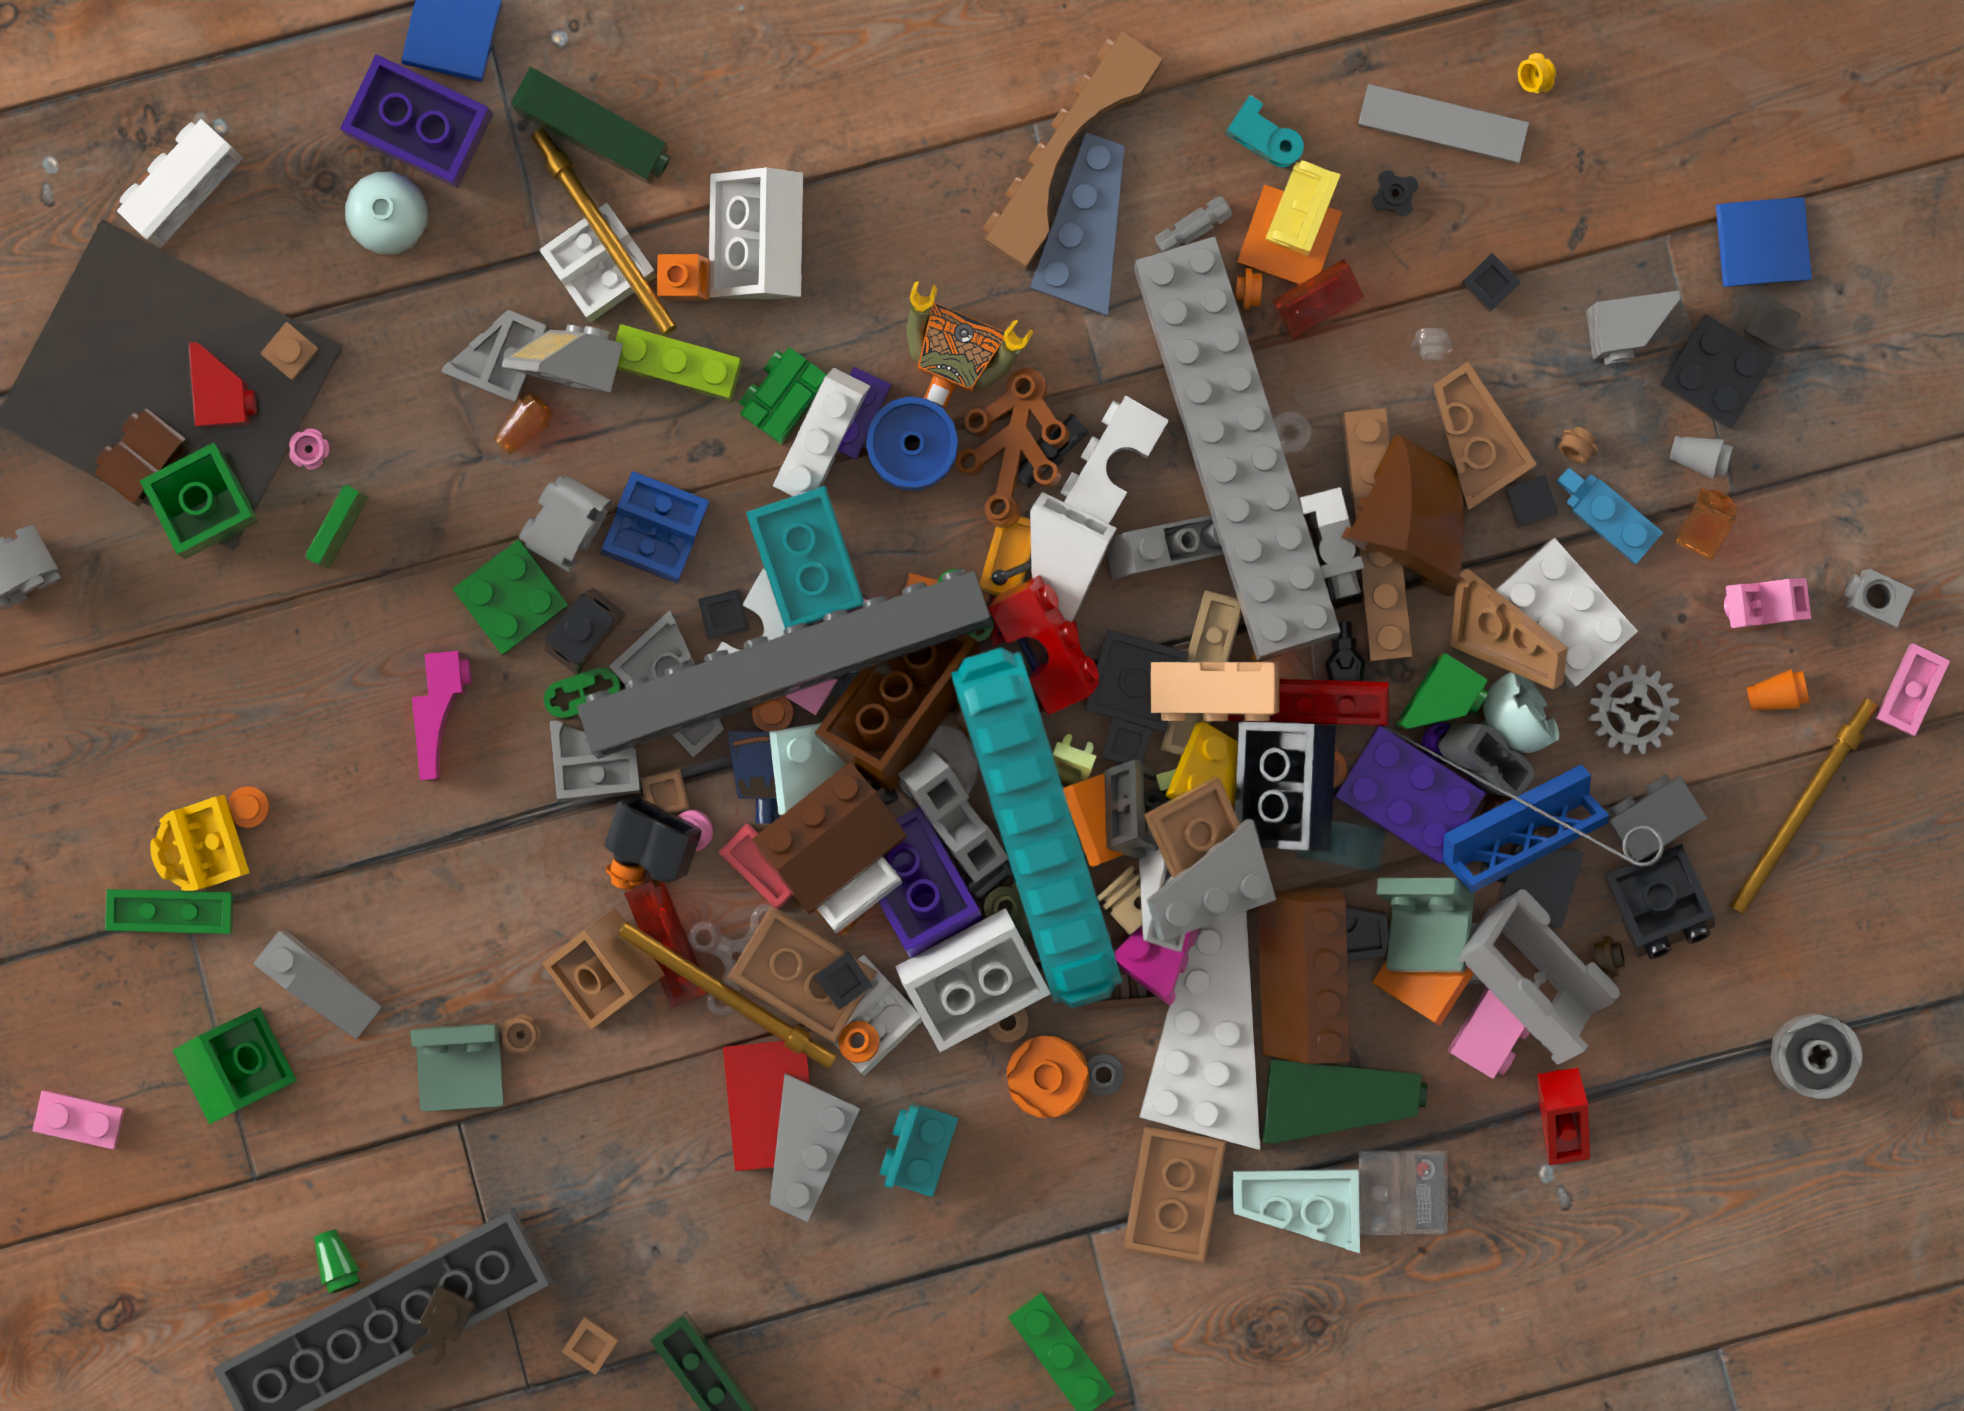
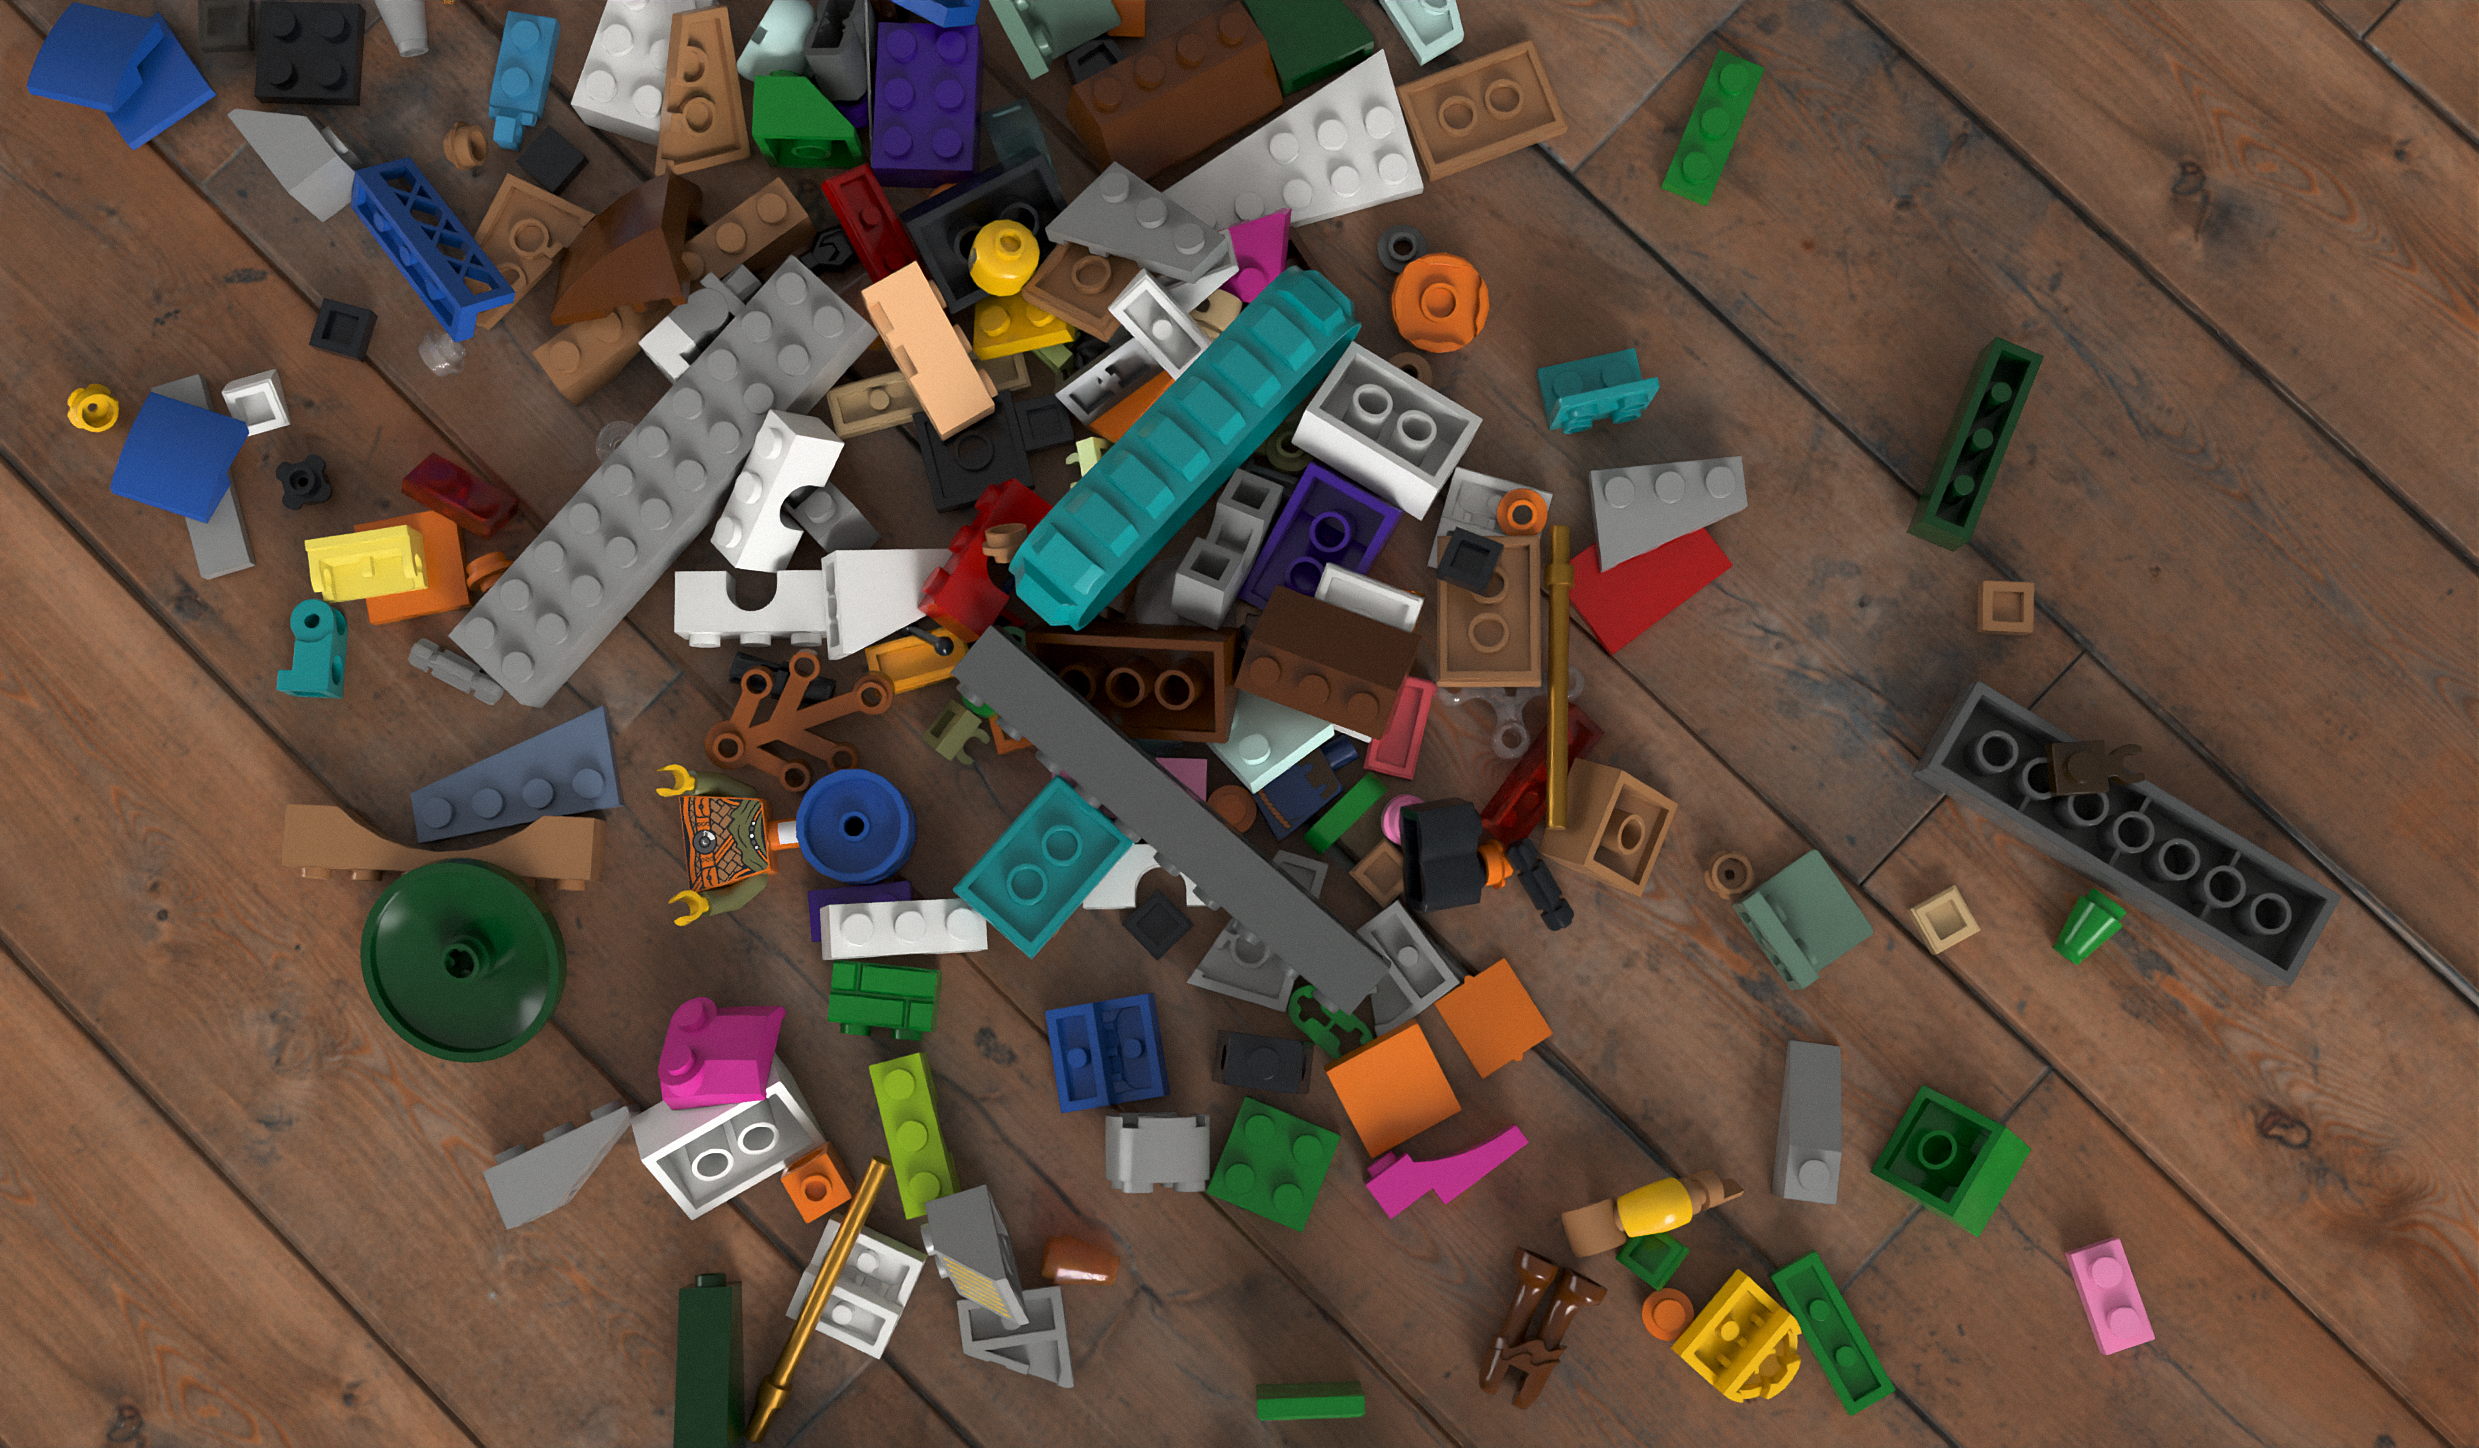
camera: 115 degrees left, 5 degrees down
(274, 704) = (1540, 1352): none -> reddish brown piece
(294, 821) = (1653, 1257): none -> green tile
(325, 833) = (1645, 1211): none -> piece
(400, 1165) = (1943, 920): none -> tan tile
(512, 709) = (1392, 1088): none -> orange tile
(520, 809) = (1493, 1018): none -> orange piece
(592, 896) = (1539, 884): none -> black axle
(722, 791) = (1345, 813): none -> green beam
(798, 92) = (550, 1175): none -> light grey slope
(810, 260) = (718, 1054): none -> dark pink slope
(943, 550) = (952, 730): none -> olive tile
(980, 119) = (463, 960): none -> dark green dish
(1042, 663) = (1004, 541): none -> medium nougat plate
(1132, 861) = (1160, 324): none -> white slope
(1198, 545) = (786, 455): none -> white arch
(1248, 778) = (1003, 257): none -> yellow head
(1460, 116) = (178, 457): none -> blue slope
(1476, 191) = (258, 401): none -> white slope
(1511, 365) = (415, 245): none -> blue fence
(1796, 215) = (93, 57): none -> blue slope

